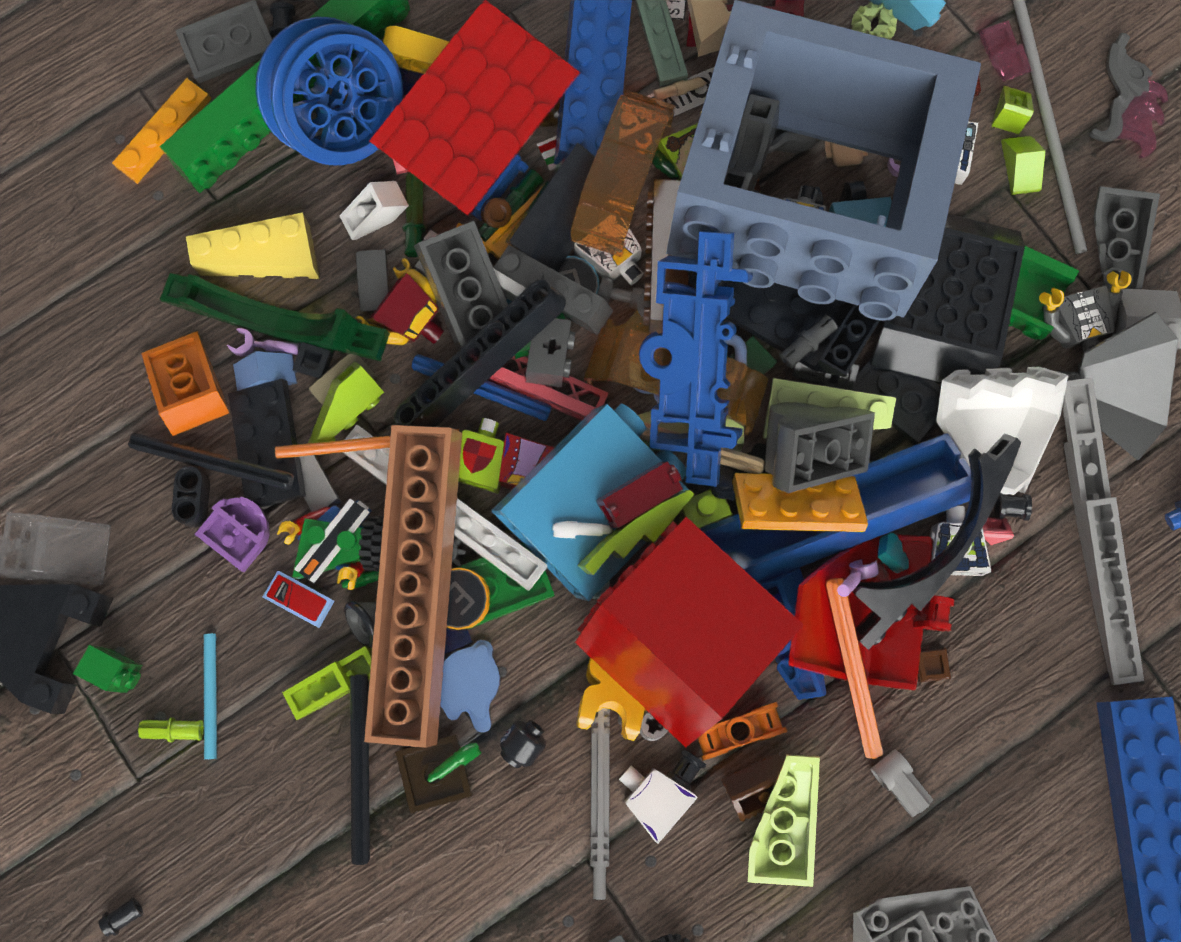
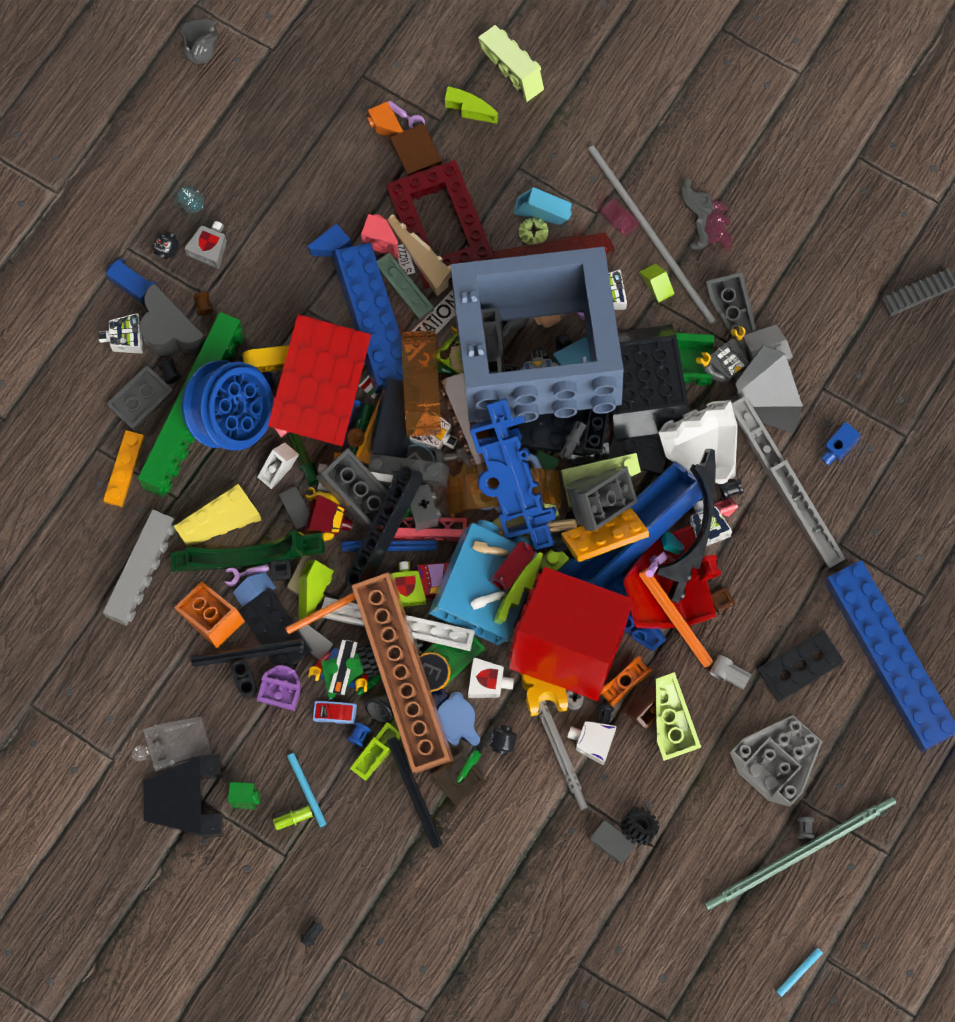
camera: 20 degrees left, 5 degrees down
(116, 278) = (139, 568): none -> light grey brick
(318, 646) = (359, 734): none -> blue bush
(538, 643) = (487, 680): none -> white torso
(609, 450) = (484, 548): none -> tan piece
(679, 88) = (431, 317): tan piece -> none
(1013, 110) = (638, 251): lime slope -> none
(1029, 830) = (799, 679): none -> black plate

